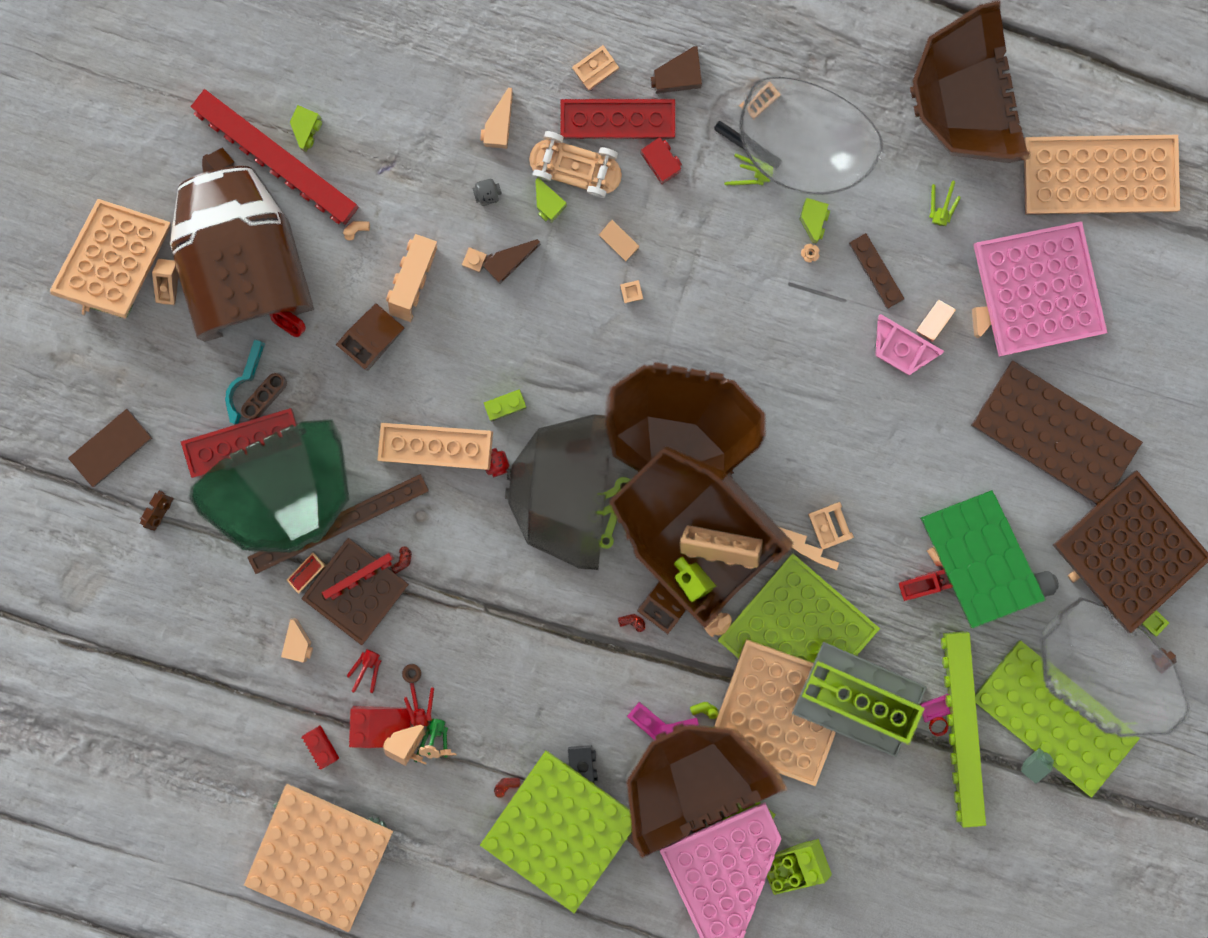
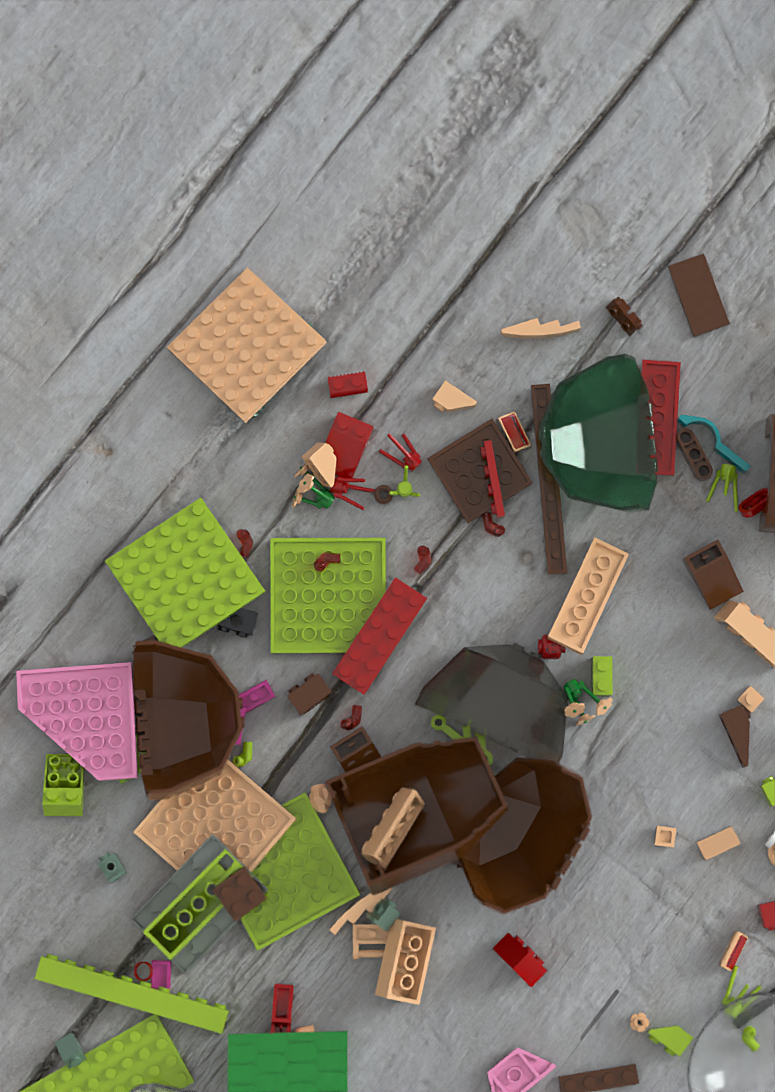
camera: 105 degrees right, 5 degrees down
(201, 592) = (533, 330): none -> light nougat slope
(271, 357) = (727, 474): none -> lime plant
(398, 656) = (404, 488): none -> lime plant
(458, 611) = (424, 558): none -> clear red arm
(495, 705) = (324, 560): none -> clear red arm
(526, 689) = (327, 607): none -> lime plate
(529, 426) = (574, 691): none -> plant
(546, 626) = (379, 636): none -> red plate
(625, 671) = (309, 694): none -> reddish brown brick
(693, 580) = (371, 789): lime torso -> none
(712, 191) = (733, 950): none -> slope
(787, 148) = (748, 1038): none -> lime arm
(795, 383) = (520, 958): none -> red brick
(803, 524) = (384, 914): none -> sand green brick
(838, 488) = (405, 961): none -> light nougat brick
(838, 667) = (239, 893): none -> reddish brown plate
(855, 785) = (118, 870): none -> sand green brick

